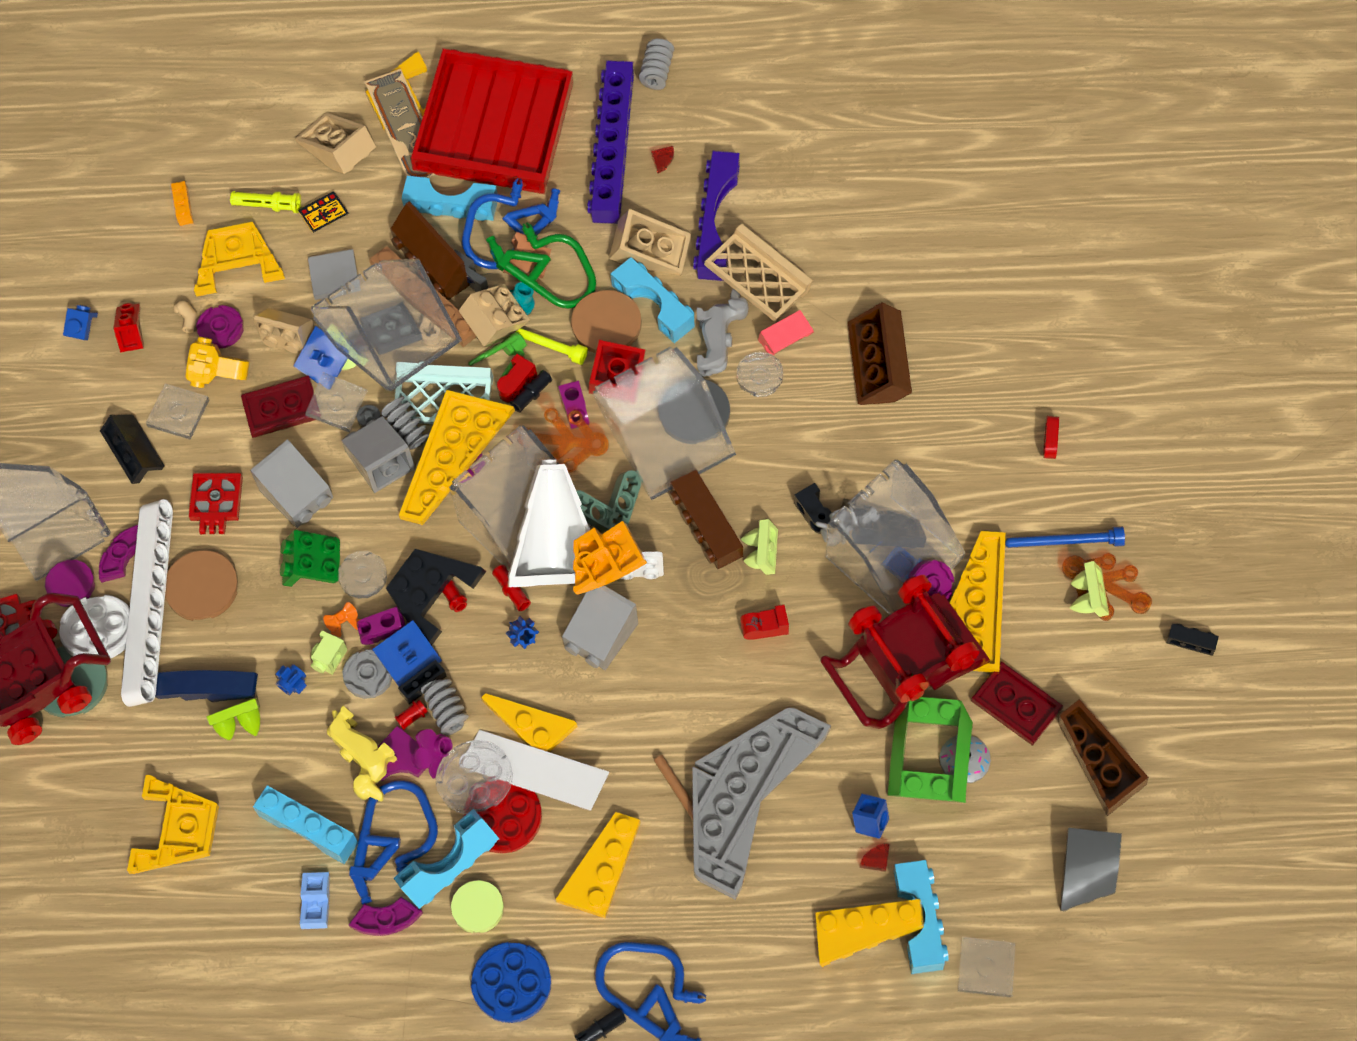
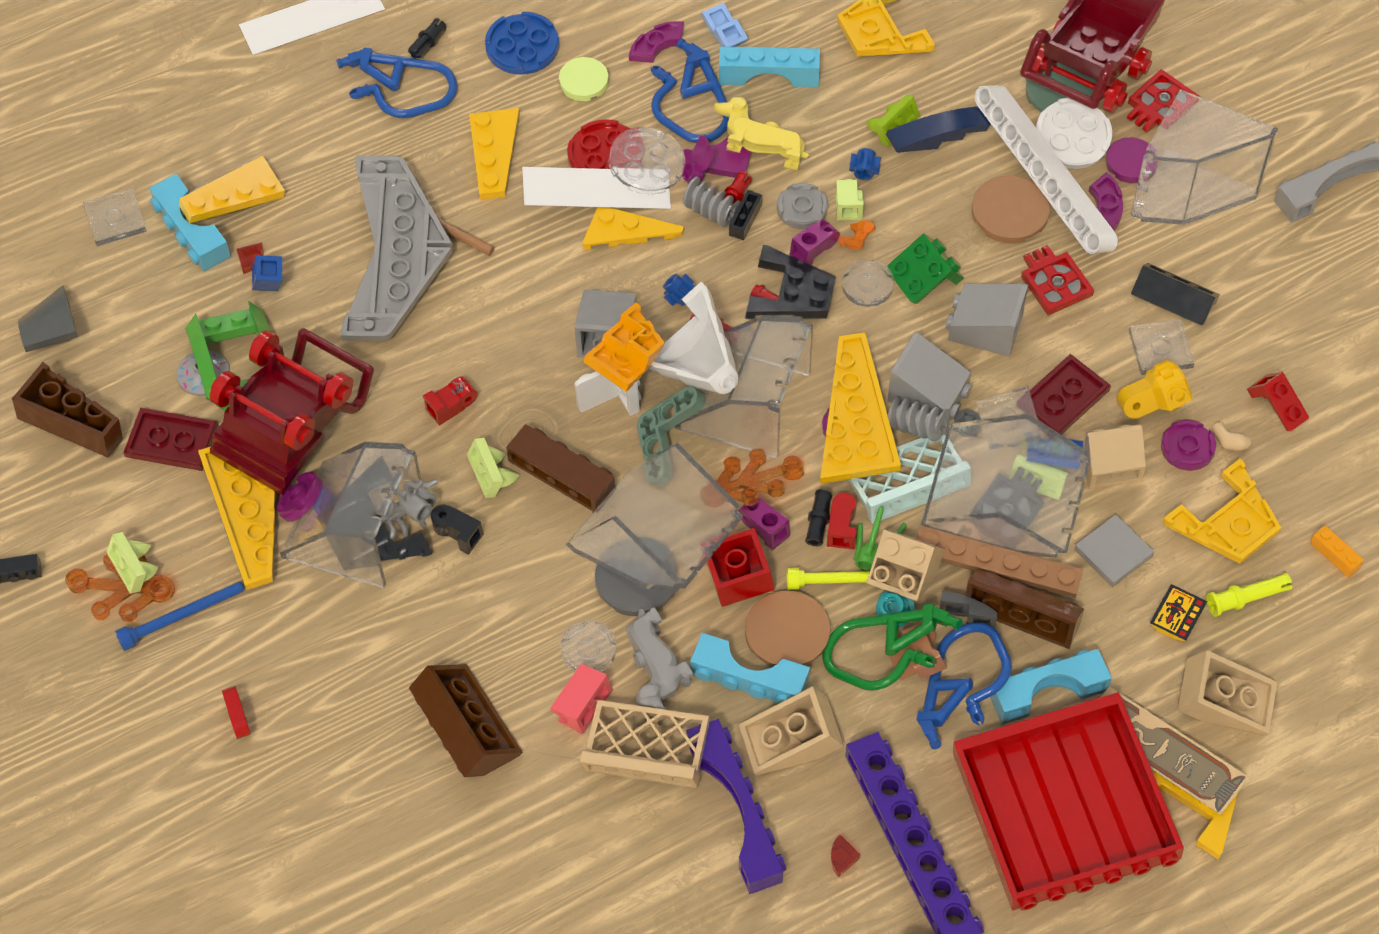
camera: 150 degrees right, 5 degrees down
(78, 322) = (1332, 381): blue bracket -> none
(406, 653) = (774, 227): blue piece -> none
(424, 881) = (636, 67): medium azure arch -> none

